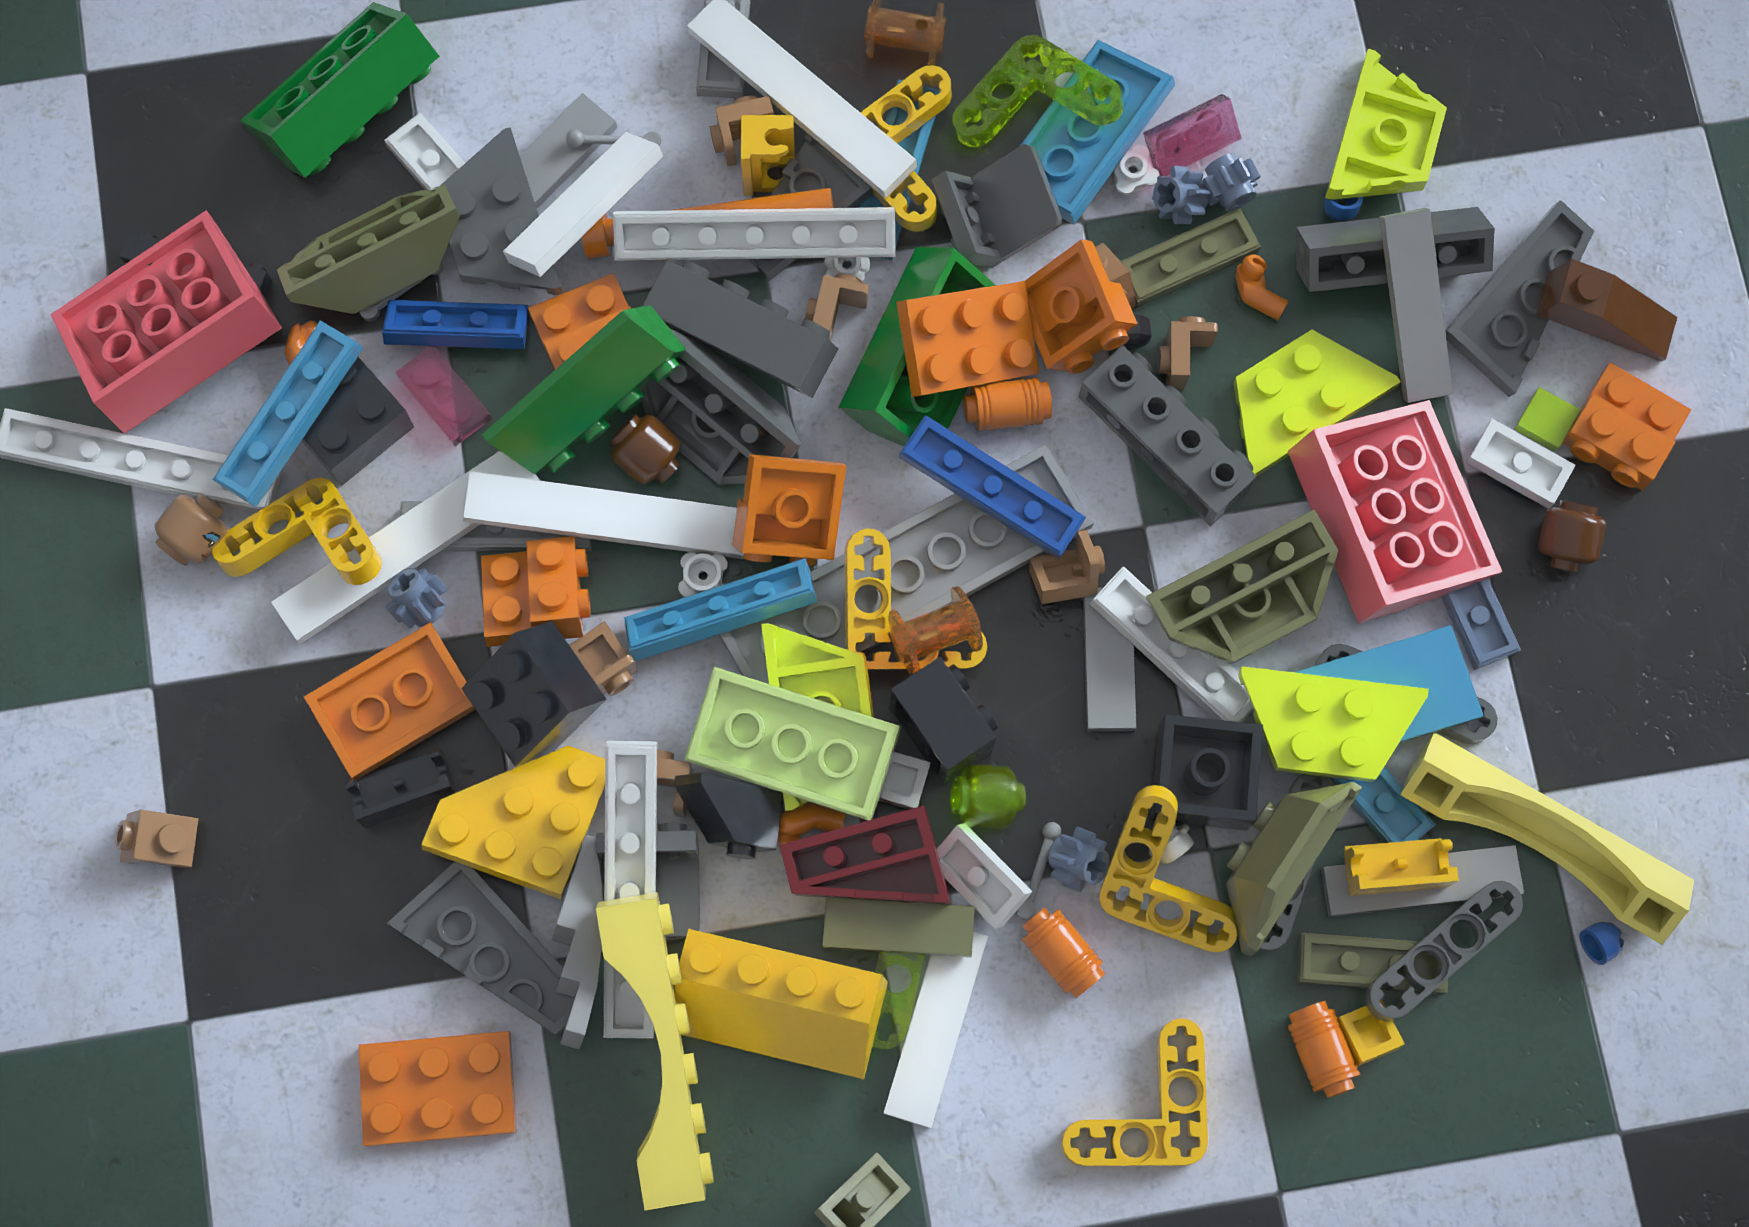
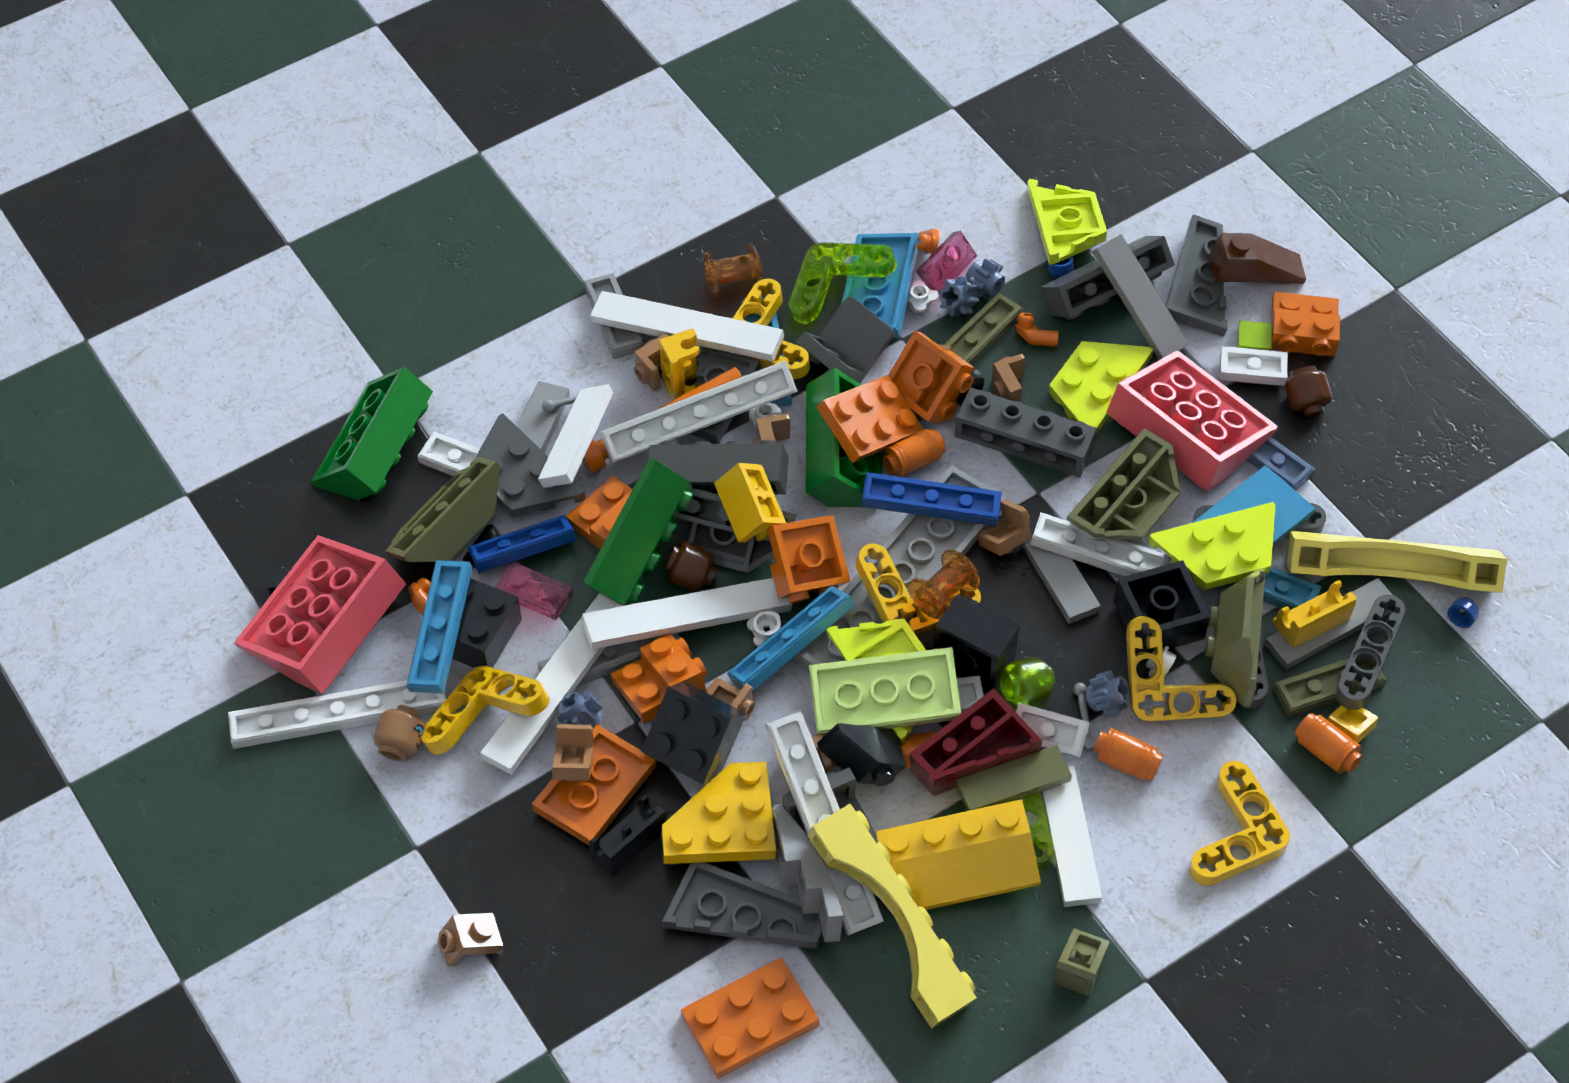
camera: 20 degrees left, 20 degrees down
(374, 659) = (573, 752): none -> medium nougat bracket
(745, 406) = (749, 501): none -> yellow hinge
(1182, 93) = (929, 240): none -> orange arm

